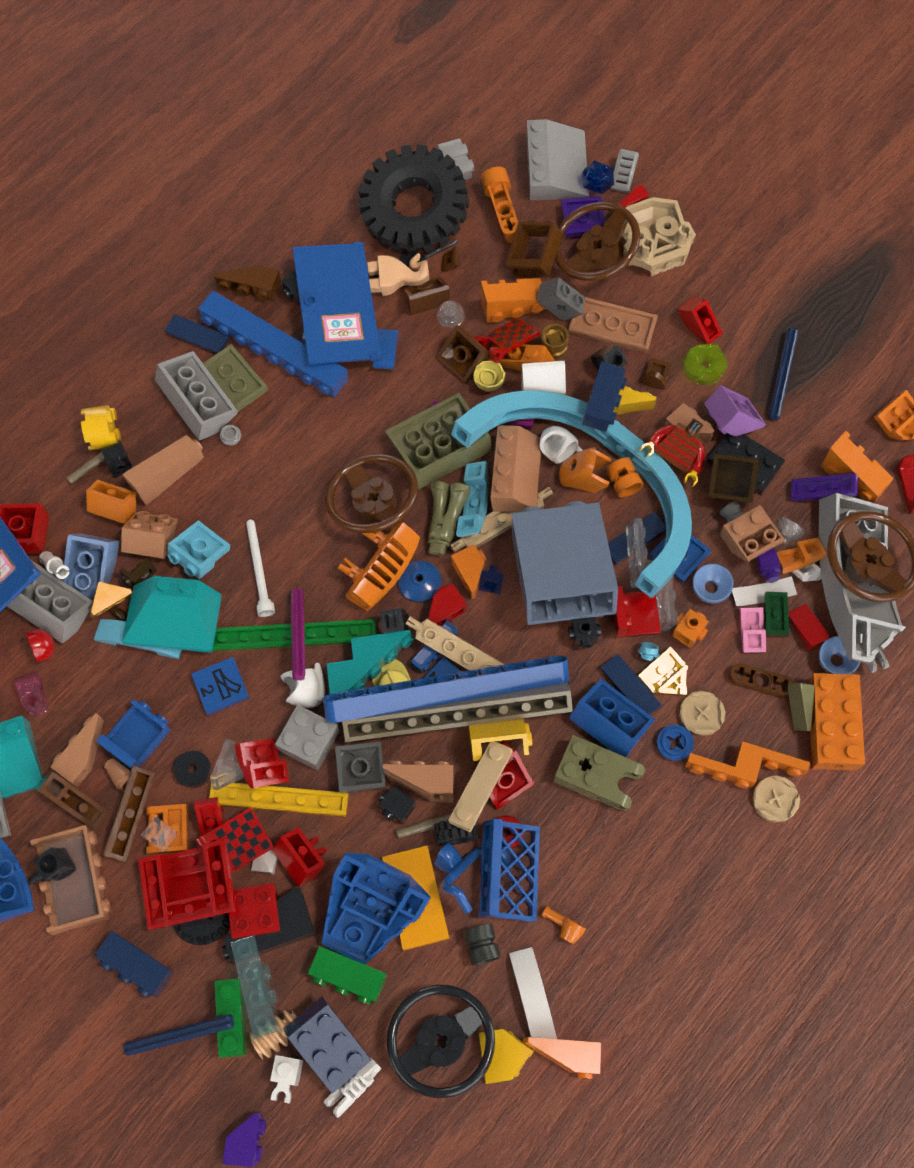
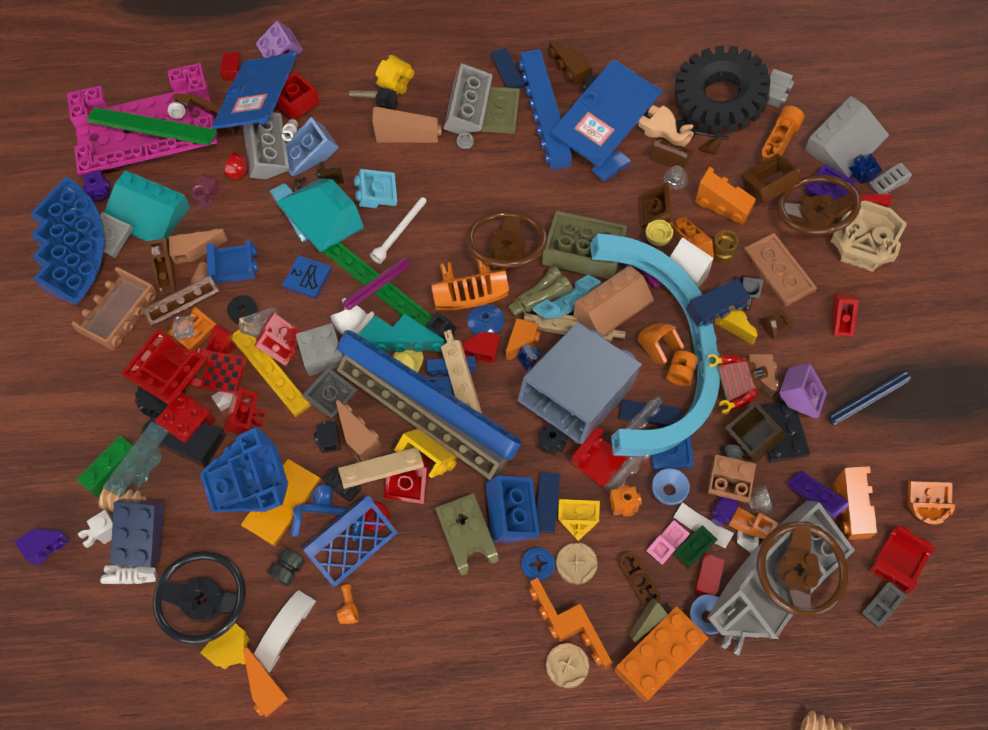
camera: 45 degrees right, 5 degrees down
(53, 865) = (112, 290): black piece -> none
(106, 597) = (295, 171): slope -> none
(111, 501) = (357, 121): orange brick -> none
(133, 965) = (95, 387): dark blue brick -> none
(148, 534) = (358, 155): nougat slope -> none
(179, 1035) = (72, 447): dark blue axle -> none
(347, 976) = (194, 507): green brick -> none
(420, 826) = (324, 461): dark tan piece -> none
(507, 338) = (694, 219): red flag -> none
(558, 444) = (659, 310): white piece -> none
(561, 299) = (755, 222): dark grey brick -> none
(648, 651) = (582, 490): medium azure plate -> none
(699, 372) = (823, 336): clear neon green plate -> none

